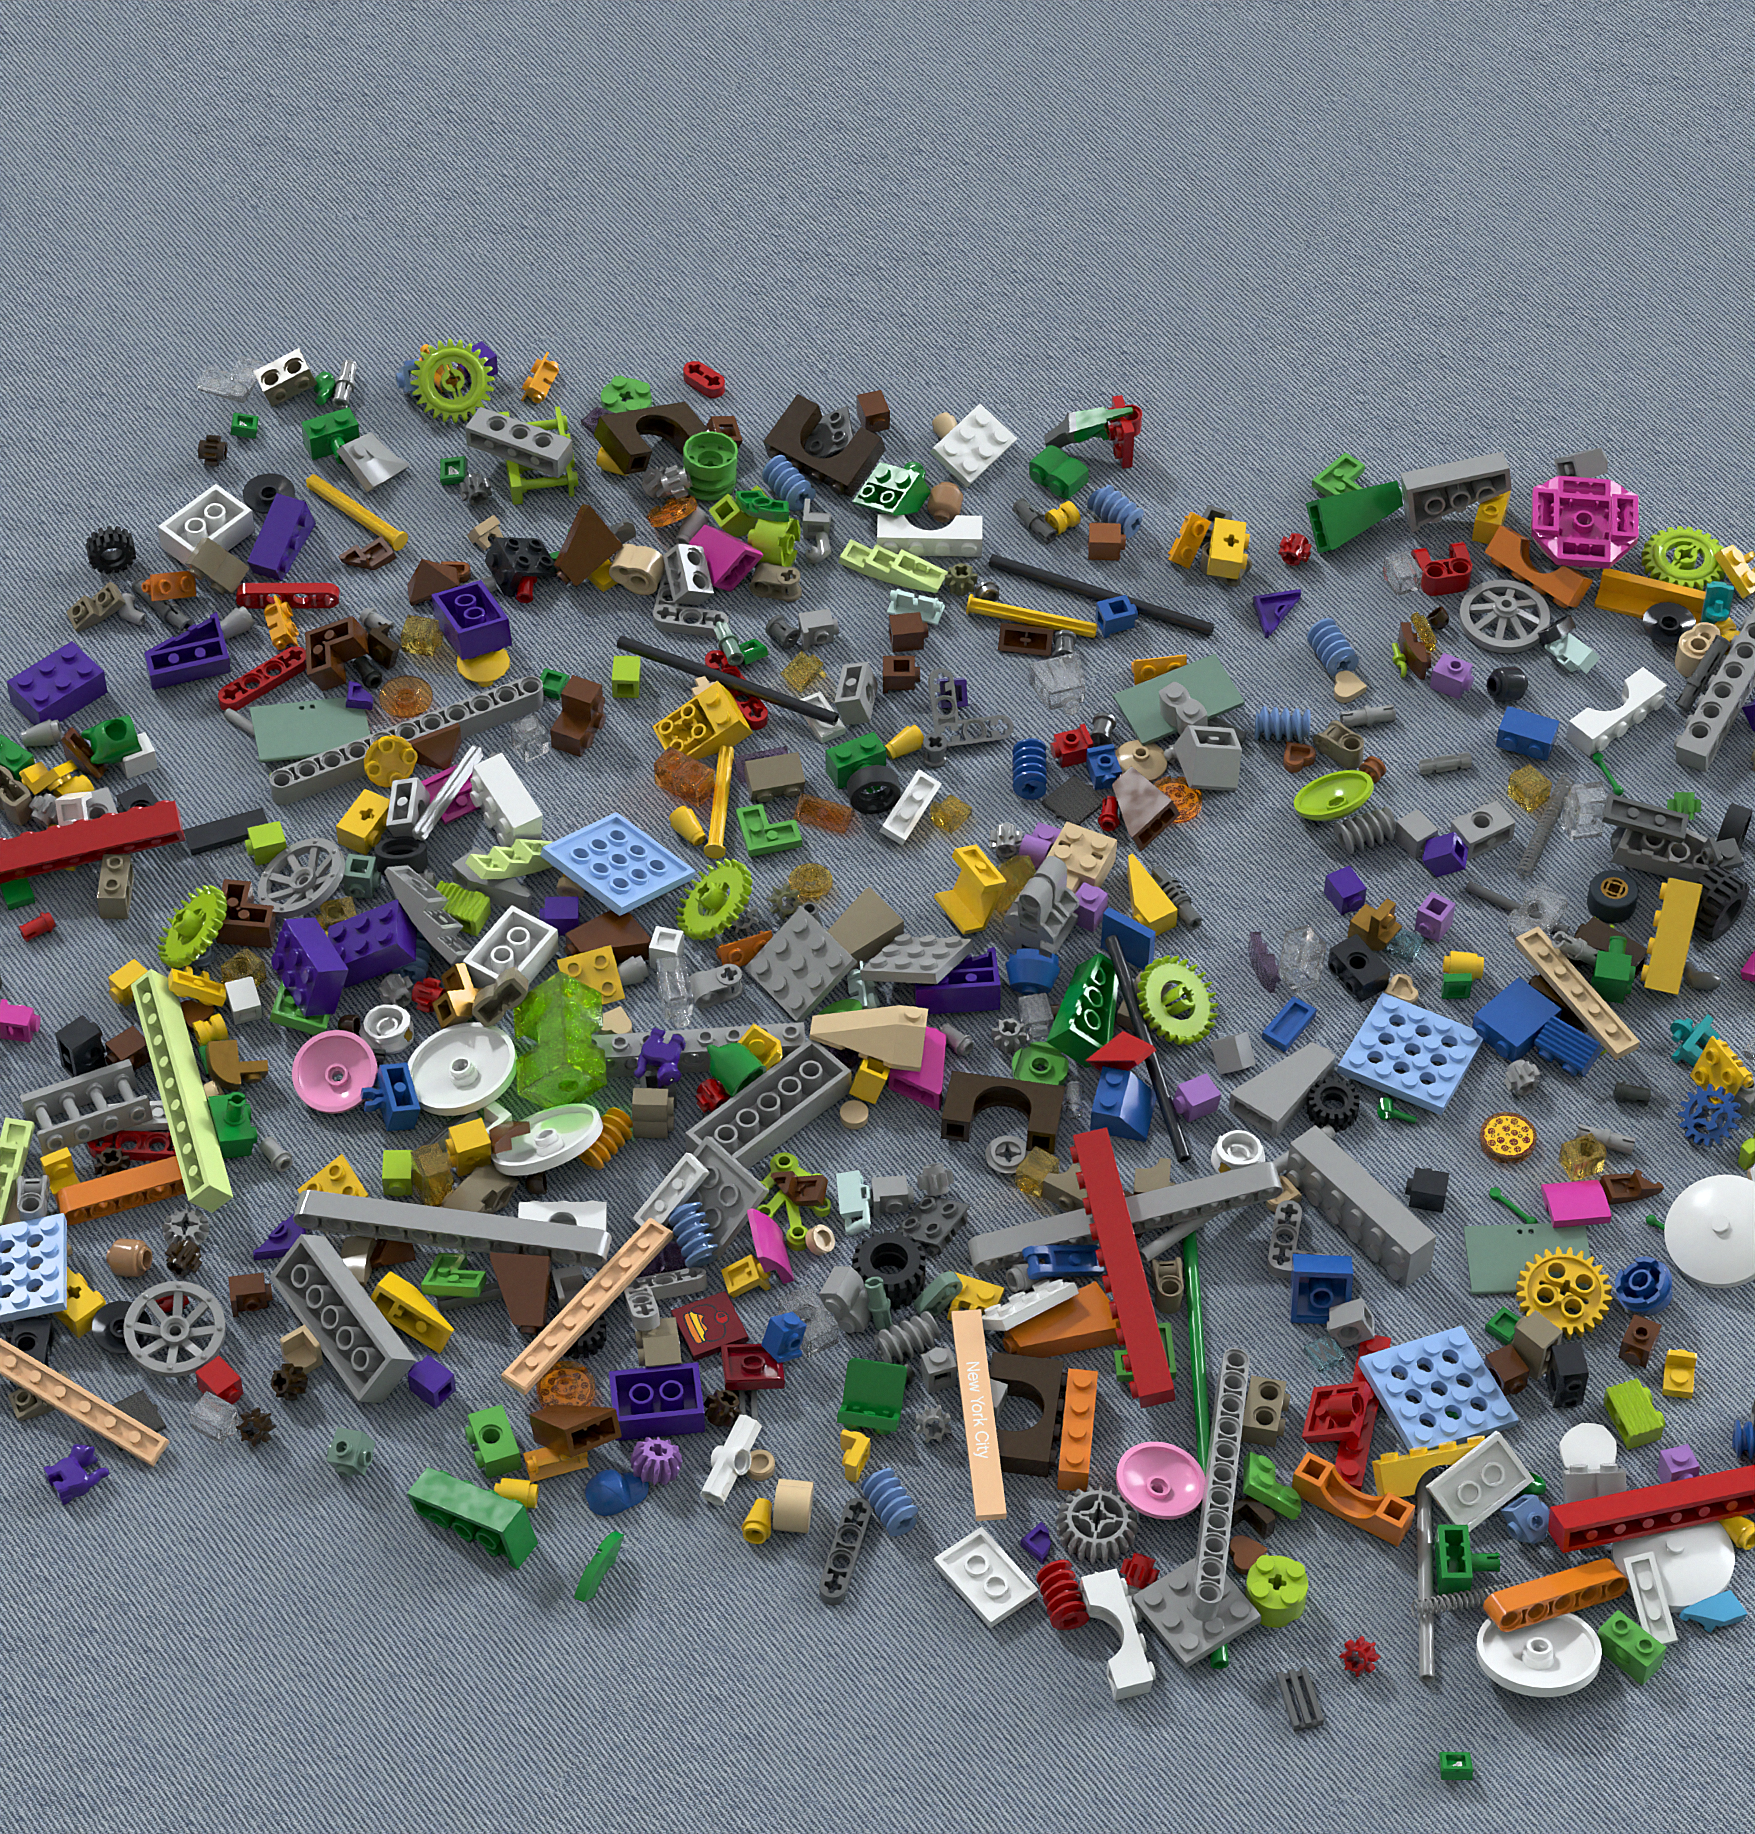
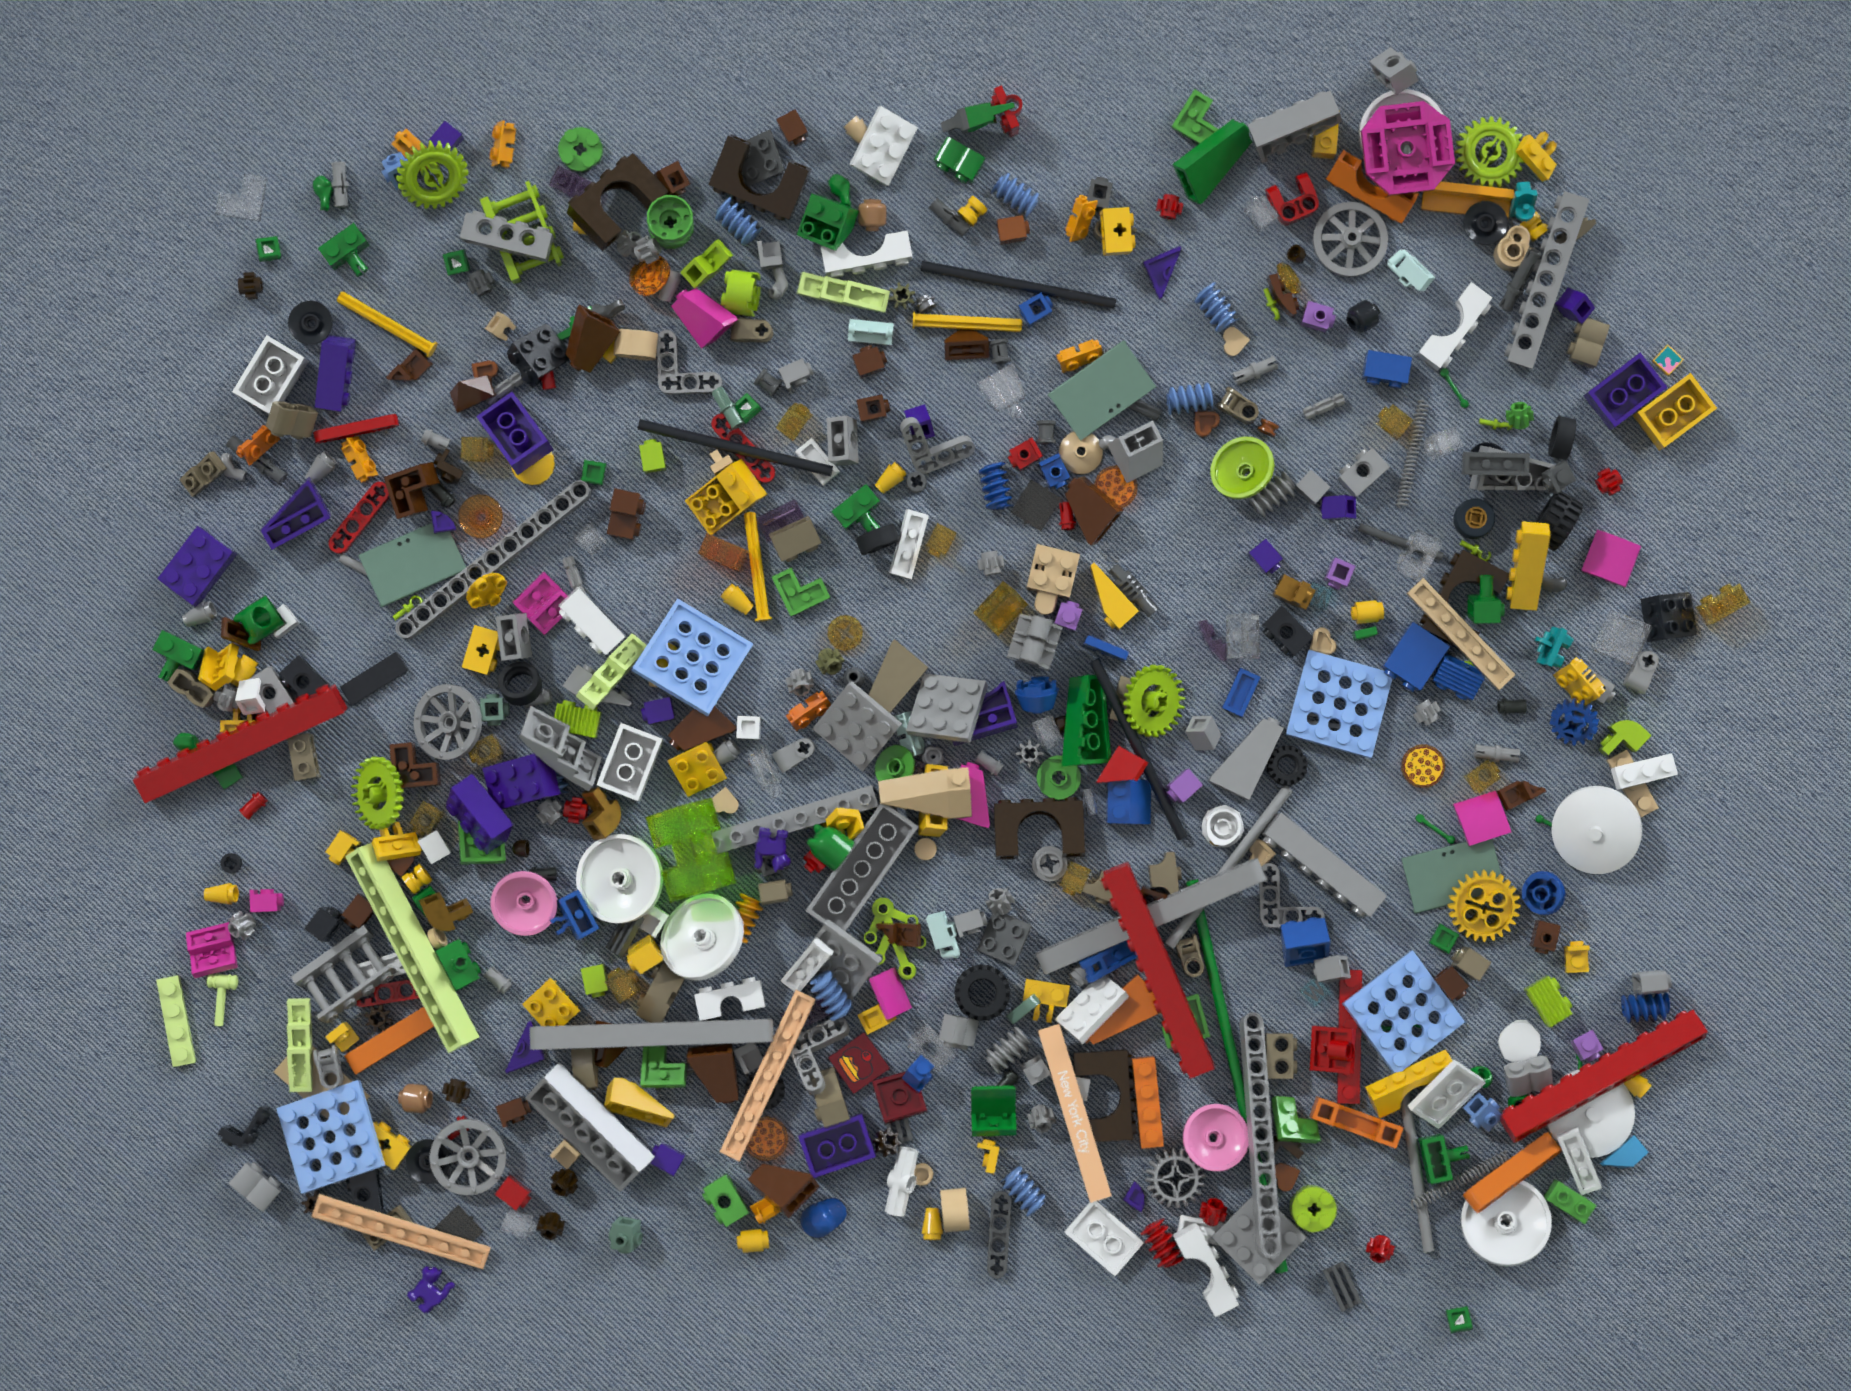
camera: 15 degrees left, 35 degrees up
(110, 539) = (198, 417): black tyre -> none
(197, 1231) = (443, 1067): light grey gear -> none
(265, 842) = (409, 688): lime brick -> none
(285, 377) = (287, 189): dark tan brick -> none
(371, 461) = (386, 270): light grey plate -> none
(387, 1028) = (551, 845): white hat -> none
(438, 747) = (521, 563): reddish brown slope -> none
(447, 793) = (540, 614): axle -> none
(474, 1514) = (726, 1267): green wedge -> none
(494, 1000) = (635, 818): dark tan brick -> none
(501, 1134) = (668, 938): reddish brown slope -> none
(598, 1566) = (827, 1291): green tile -> none
(656, 1461) = (853, 1188): medium lavender gear -> none
(688, 574) = (676, 346): light grey brick -> none
(705, 378) = (637, 117): red beam -> none
(712, 896) = (777, 679): lime gear -> none
(762, 507) = (725, 271): green tile -> none
(820, 1240) = (924, 972): tan tile -> none
(823, 813) = (840, 560): clear orange slope -> none
(878, 1303) = (981, 1029): sand green axle -> none
(974, 892) = (975, 631): yellow panel -> none
(1039, 843) = (1018, 560): medium lavender plate -> none
(1180, 709) = (1105, 409): light grey brick -> none
(1386, 1111) = (1327, 759): green hand -> none
(1427, 1189) = (1370, 830): black brick -> none
(1556, 630) = (1395, 252): black beam -> none
(1567, 1375) = (1497, 986): black brick -> none
(1575, 948) = (1456, 592): light grey pin -> none

